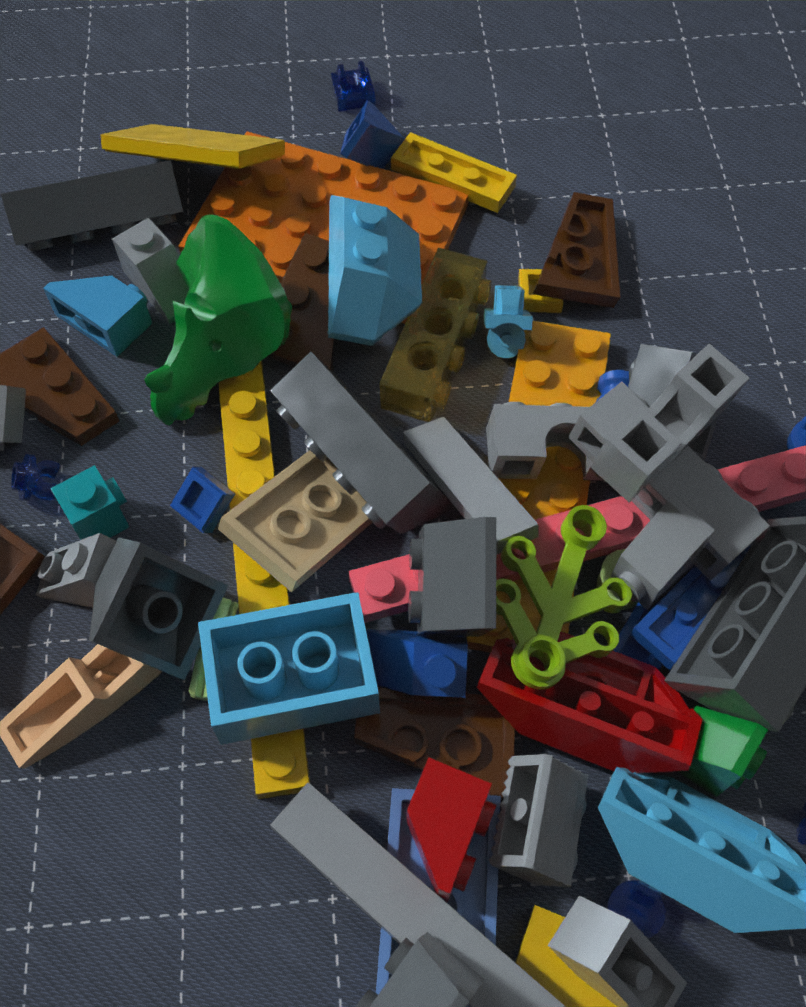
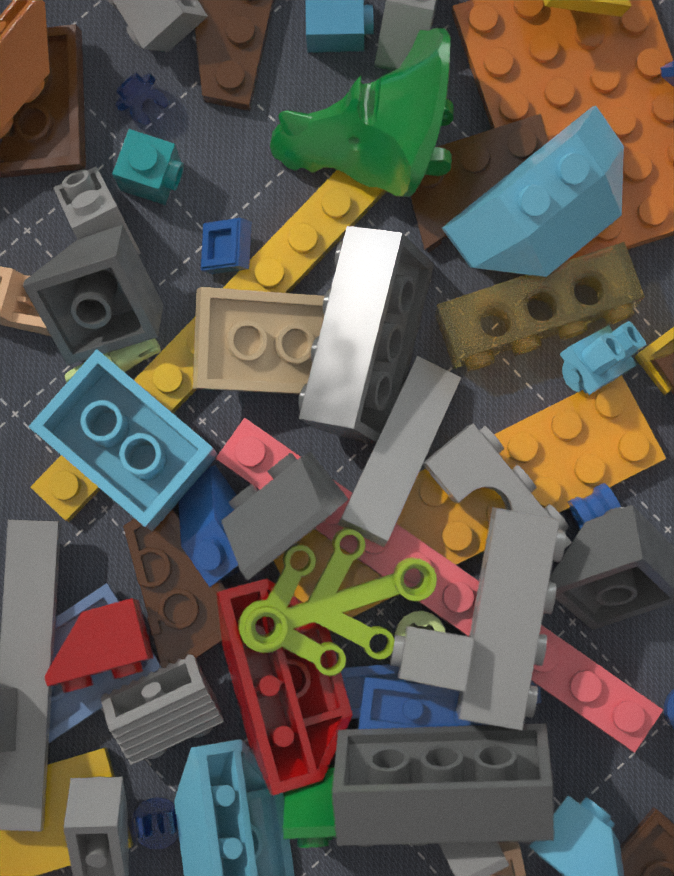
camera: 55 degrees right, 20 degrees up
(659, 434) = (530, 591): light grey arch -> none

